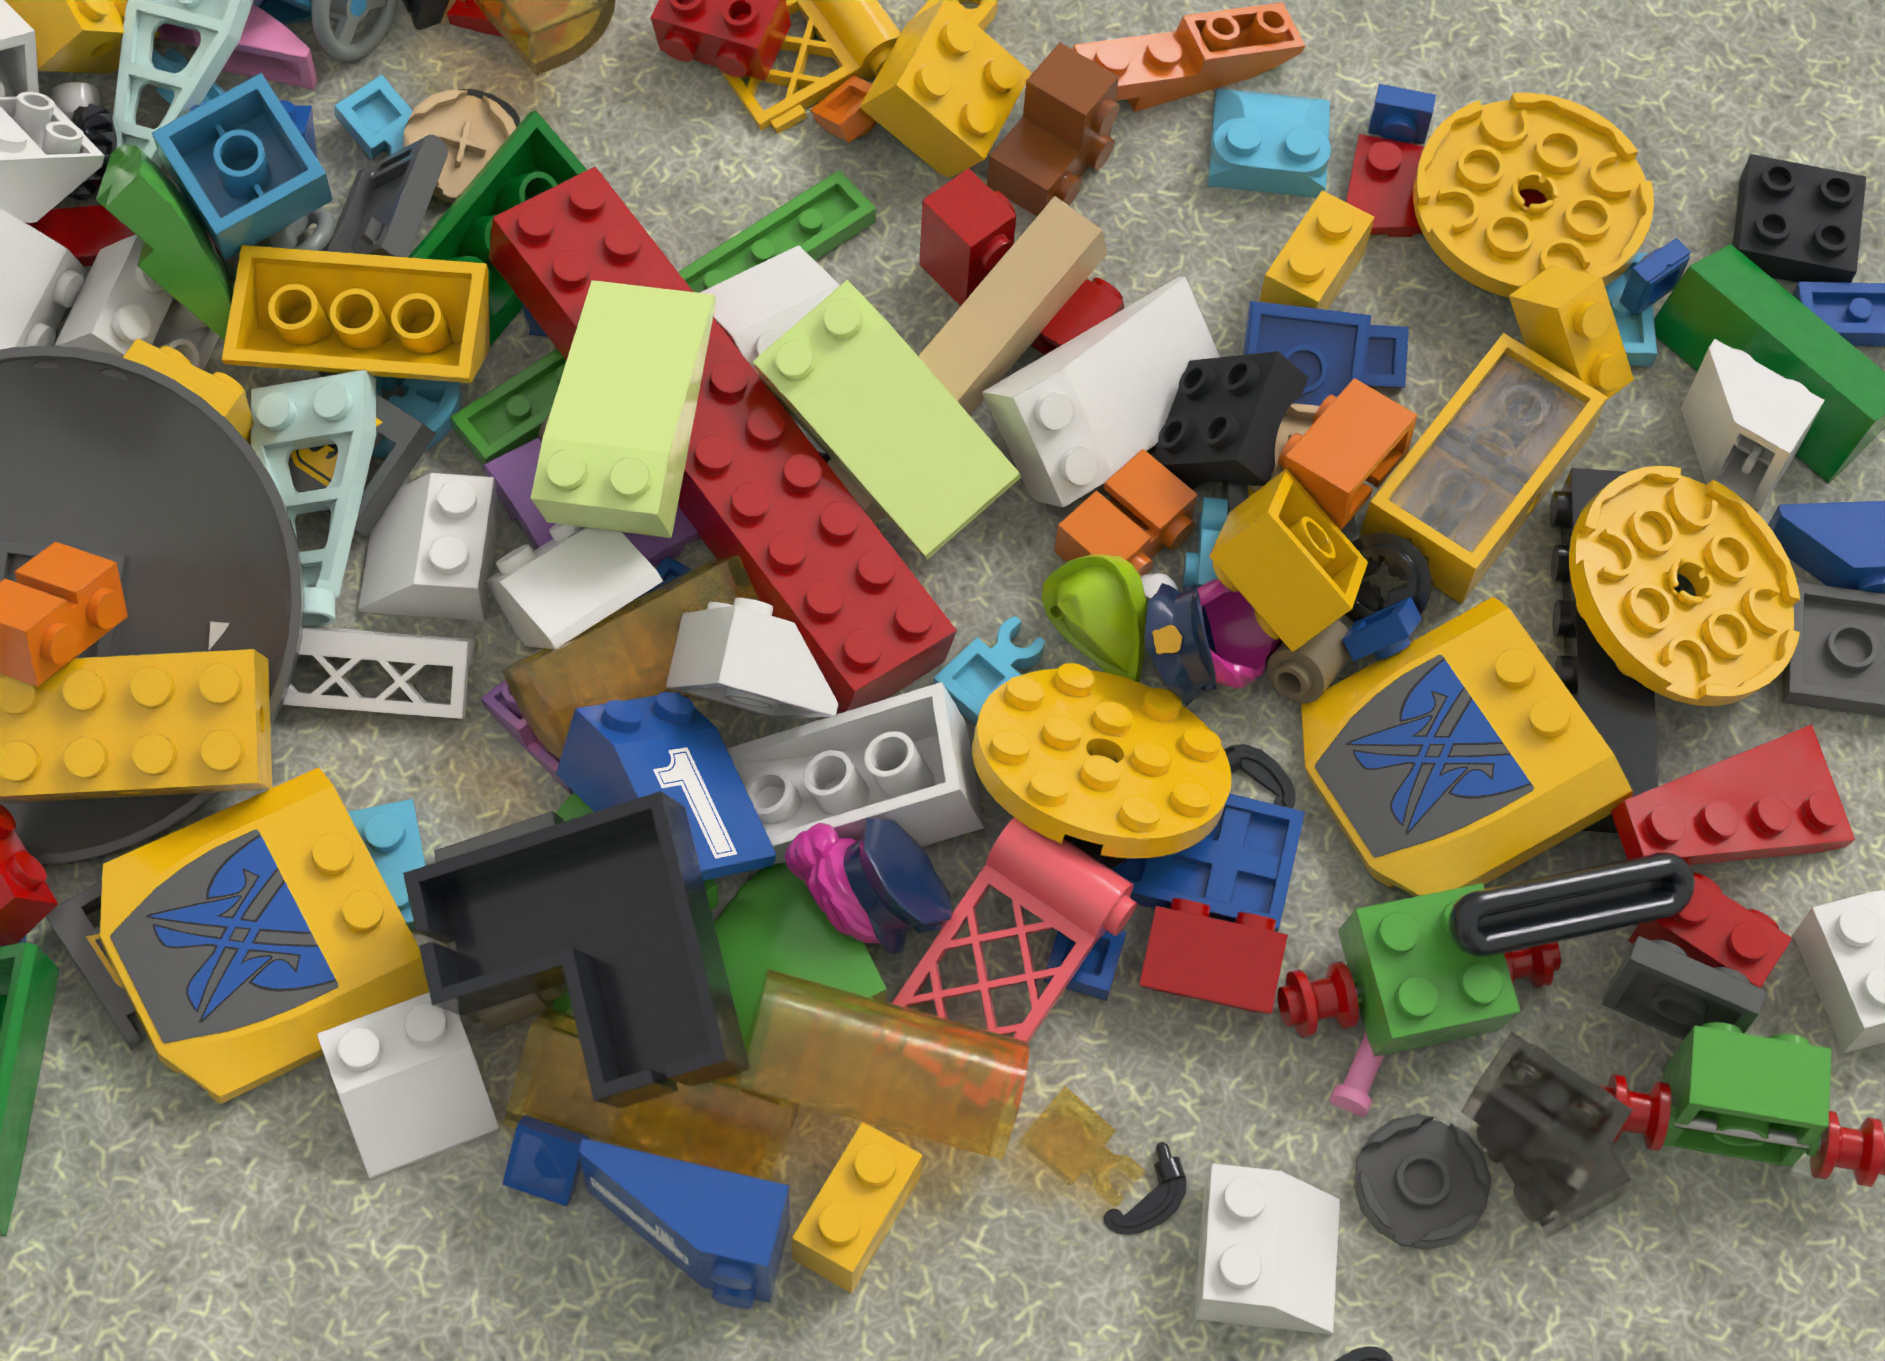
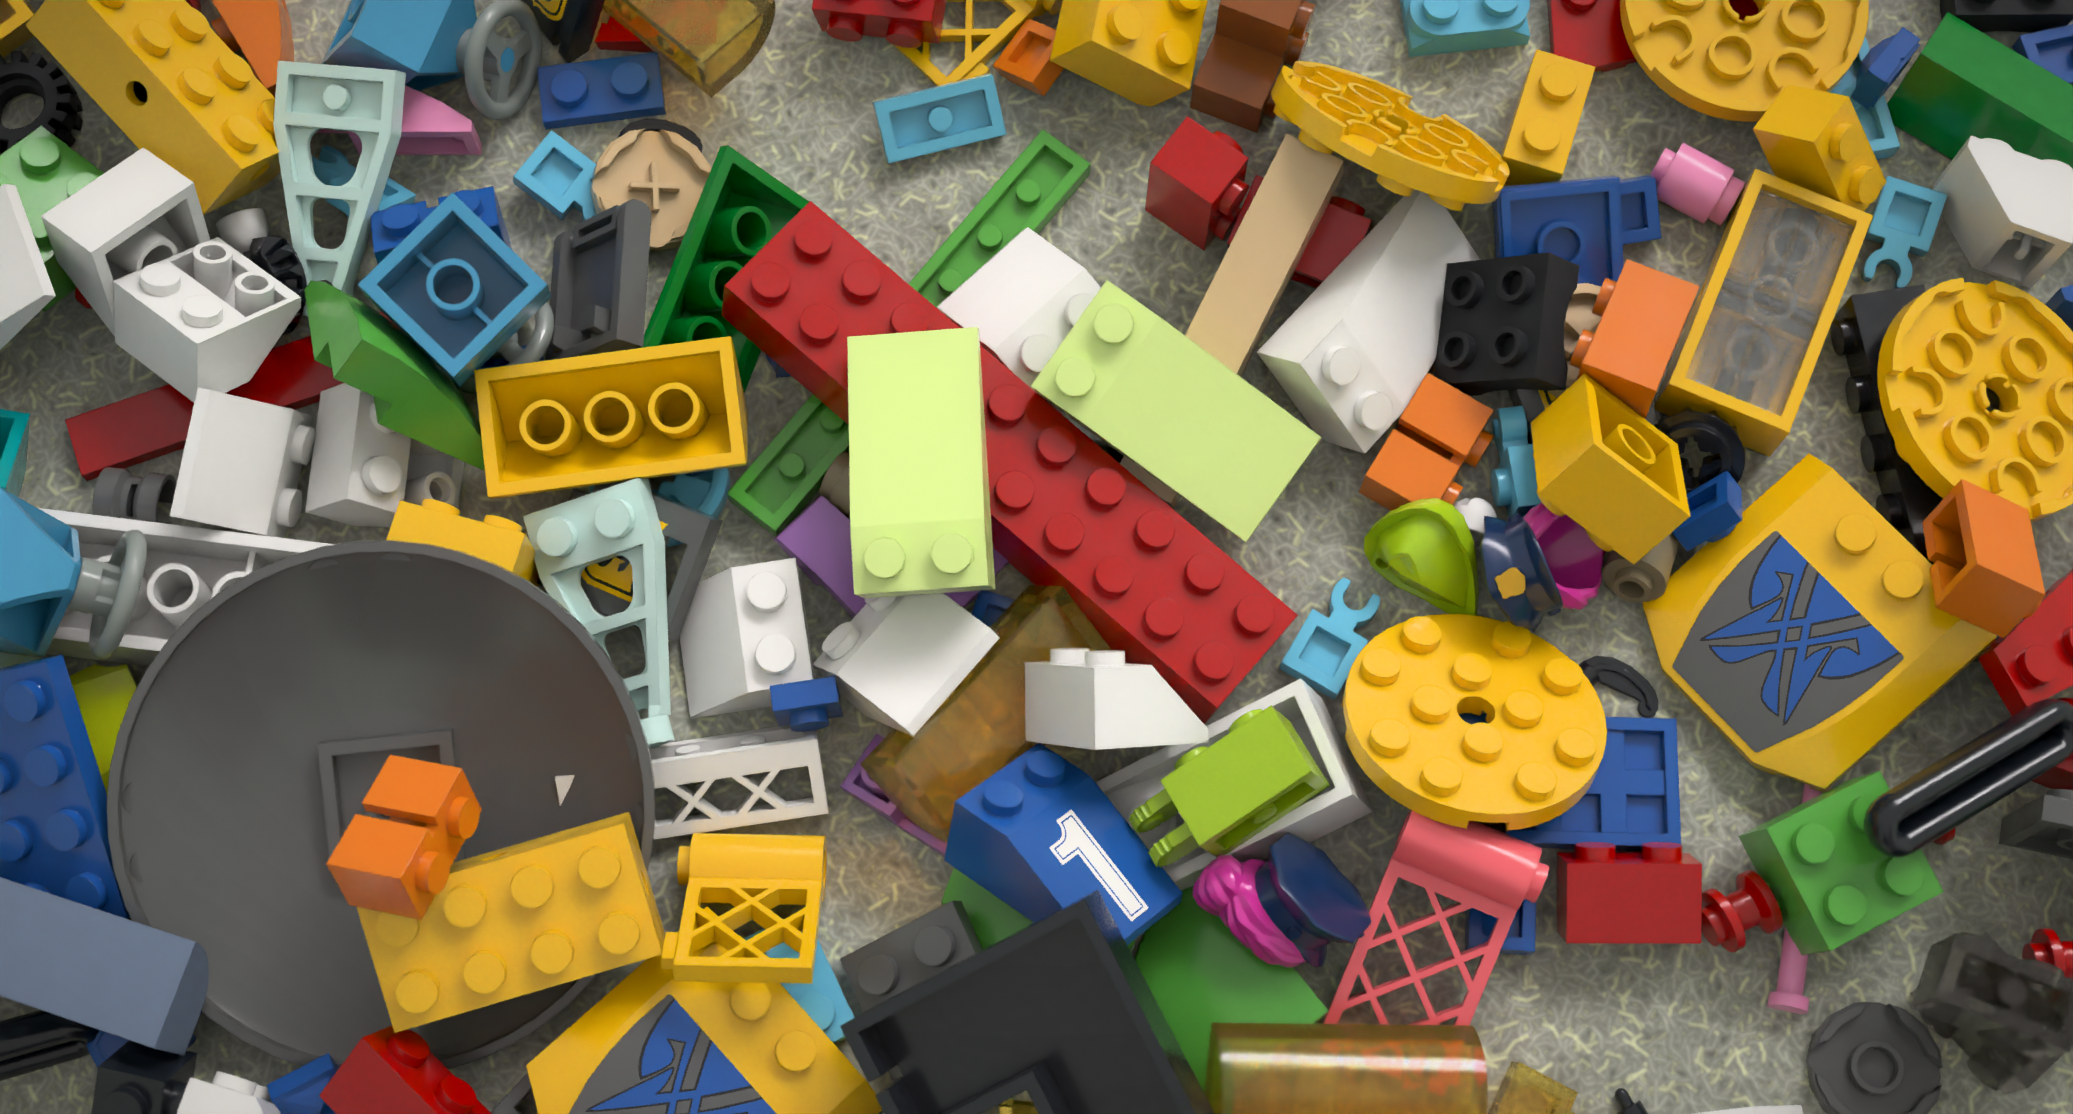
camera: 10 degrees left, 10 degrees up
(346, 747) = (754, 877): none -> yellow piece
(440, 57) = (601, 90): none -> blue plate
(468, 609) = (806, 703): none -> blue plate
(745, 141) = (939, 118): none -> medium azure plate
(844, 762) = (1231, 788): none -> lime hinge
(1157, 229) = (1380, 132): none -> yellow plate
(1446, 344) = (1696, 184): none -> bright pink brick
(1631, 711) = (1983, 559): none -> orange piece
(1642, 424) = (1902, 224): none -> medium azure plate

